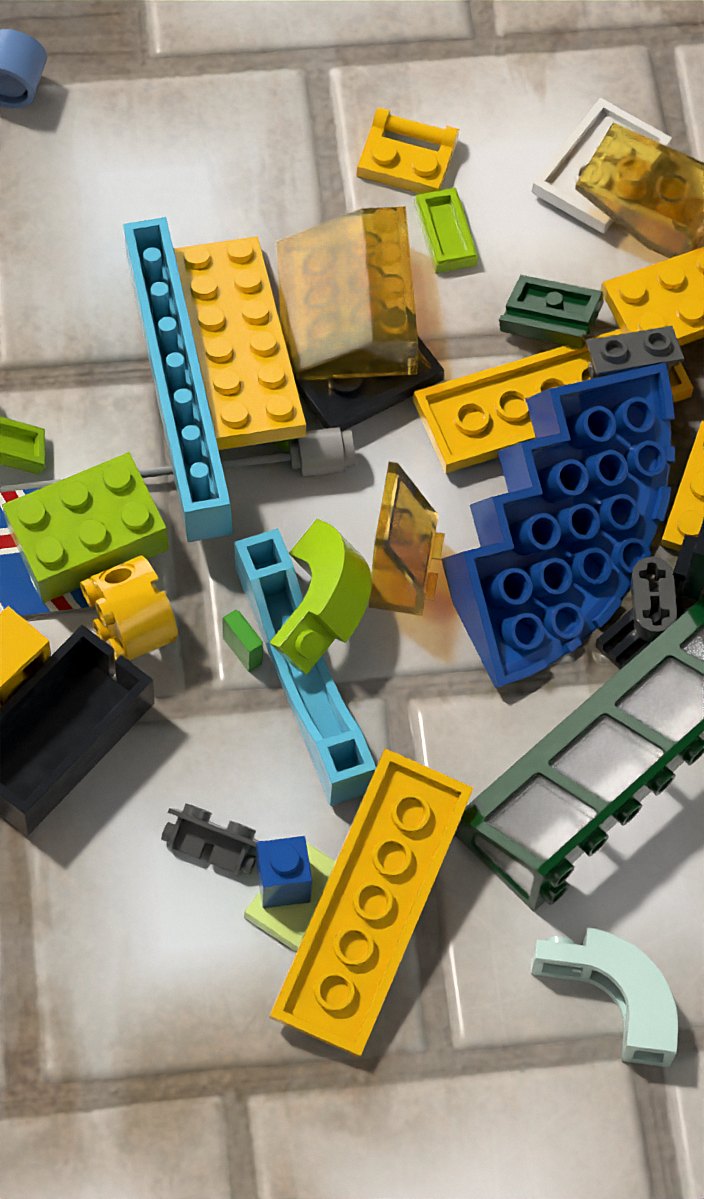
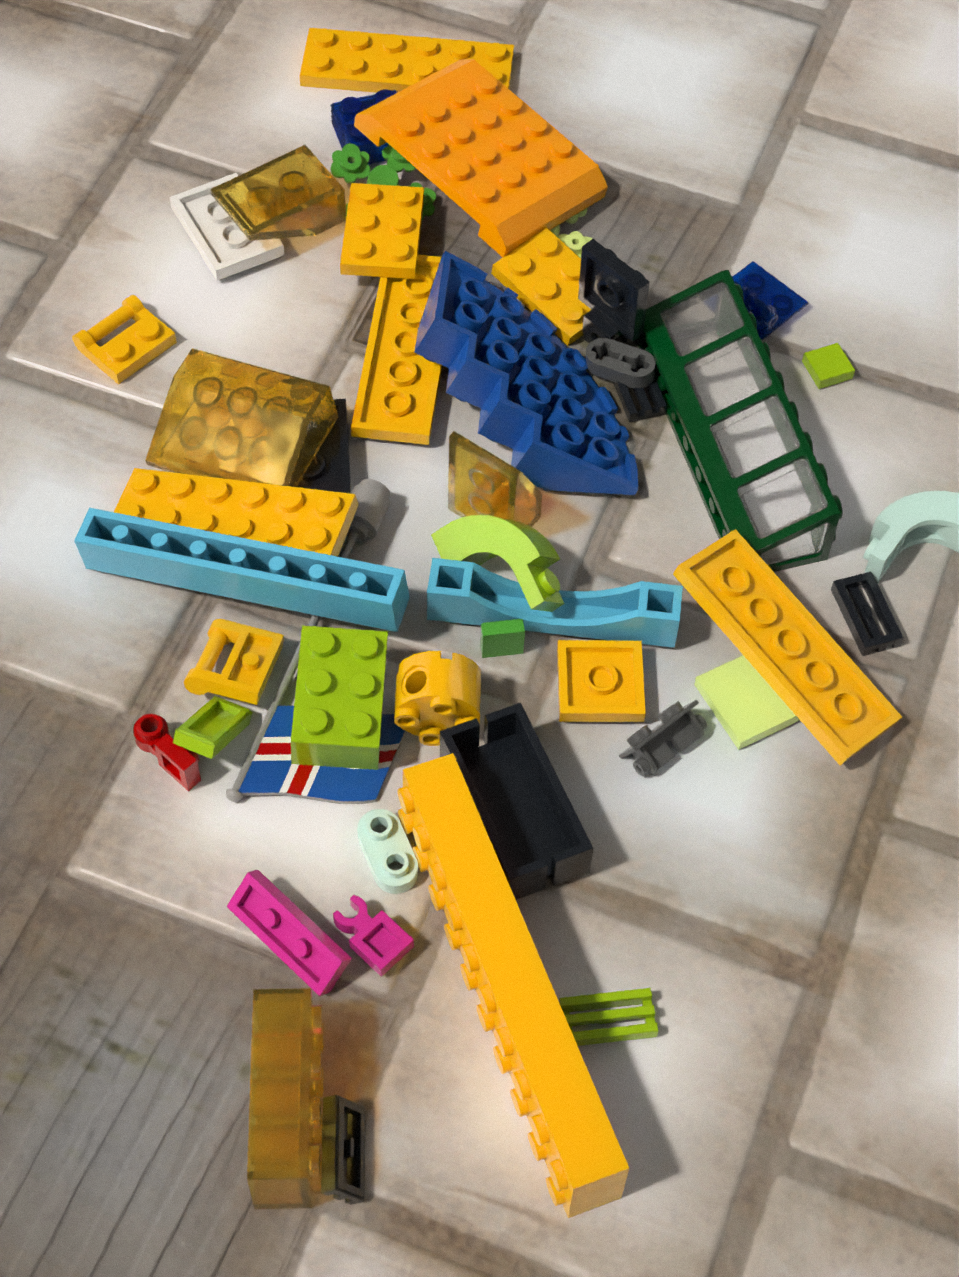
camera: 60 degrees left, 5 degrees down
(85, 437) = (246, 667): none -> yellow plate
(245, 752) = (600, 681): none -> yellow plate
(283, 872) = (732, 692): blue brick -> none
(445, 230) = (211, 340): lime tile -> none
(452, 1003) = (865, 645): none -> black tile
(551, 311) = (337, 311): dark green plate -> none
(633, 351) = (417, 271): dark grey hinge -> none

